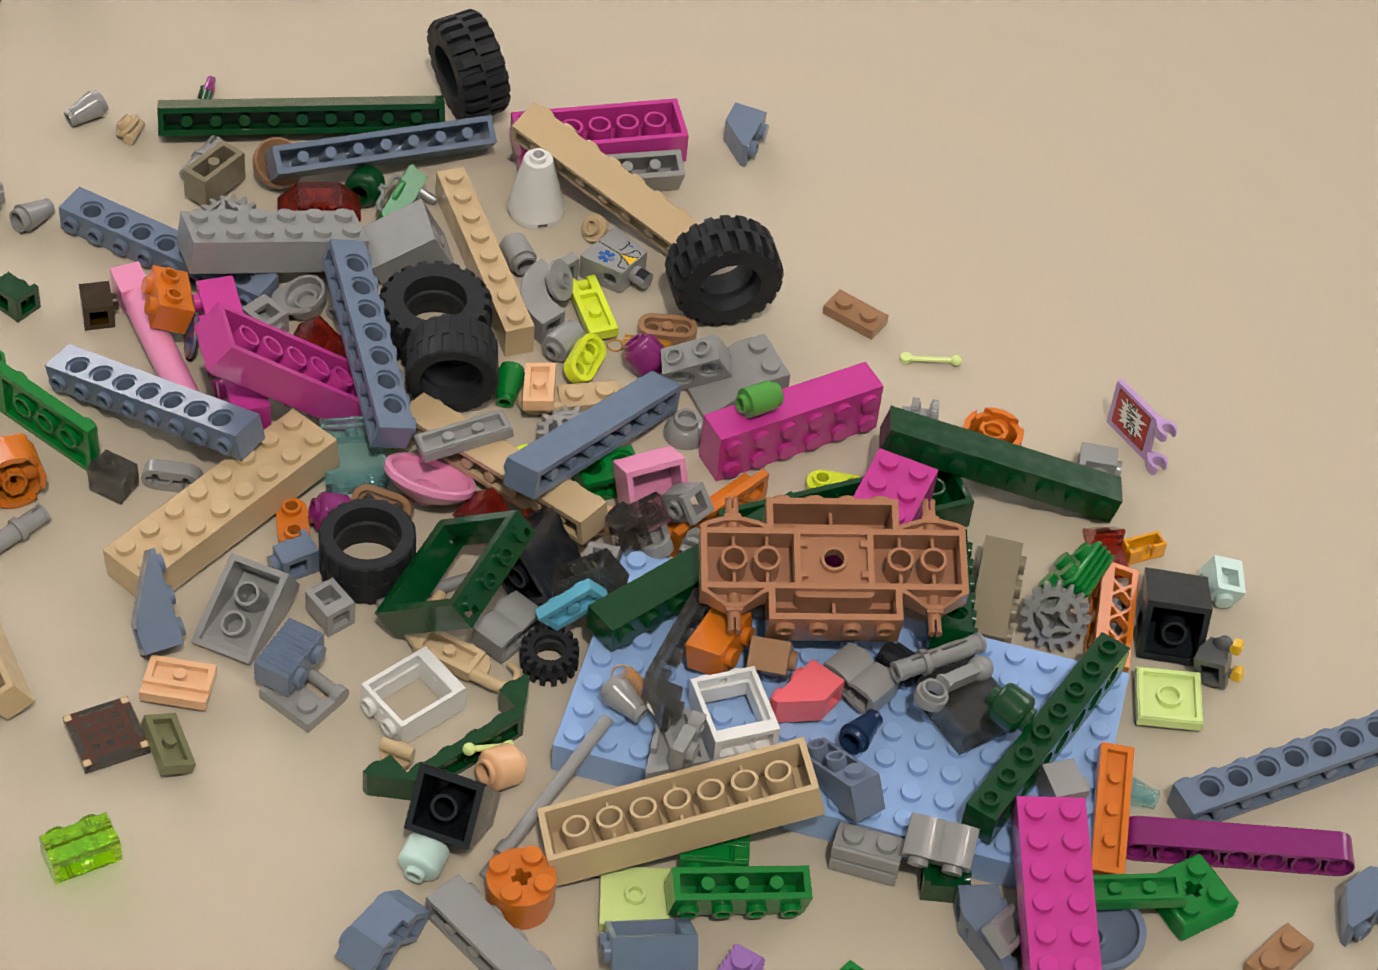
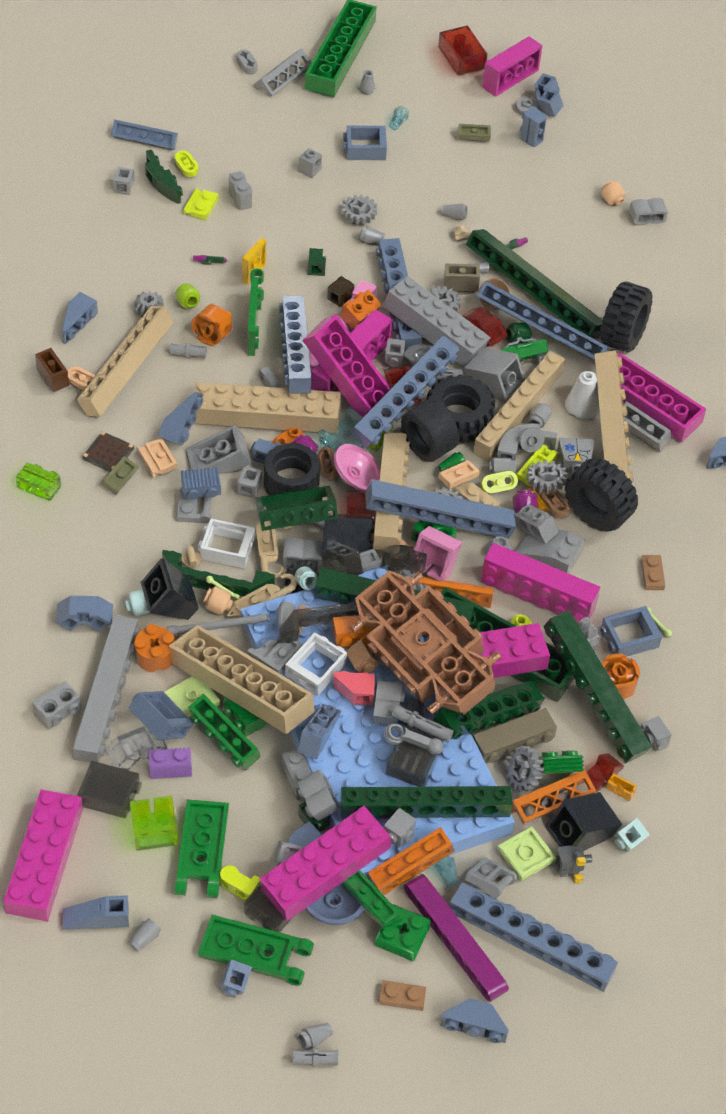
camera: 55 degrees right, 5 degrees up
(113, 476) = (248, 361): clear smoke brick -> none
(463, 436) = (389, 462): light grey tile -> none
(545, 715) = (261, 595): none -> tan plate
(570, 605) = (319, 560): medium azure plate -> none
(575, 640) = (306, 578): none -> light aqua brick
(594, 227) = (592, 433): tan plate -> none
(630, 305) = (546, 476): none -> light grey gear
(679, 505) = (433, 571): light grey brick -> none
(685, 746) = (272, 652): light grey plate -> none
(759, 399) = (521, 556): bright green brick -> none
(859, 733) = (356, 722): dark blue cone -> none
(936, 370) = (643, 617): none -> sand blue window
(1010, 707) = (415, 771): dark green head -> none
(1139, 425) = (697, 740): flag -> none
(1176, 753) = (486, 872): none -> light grey plate

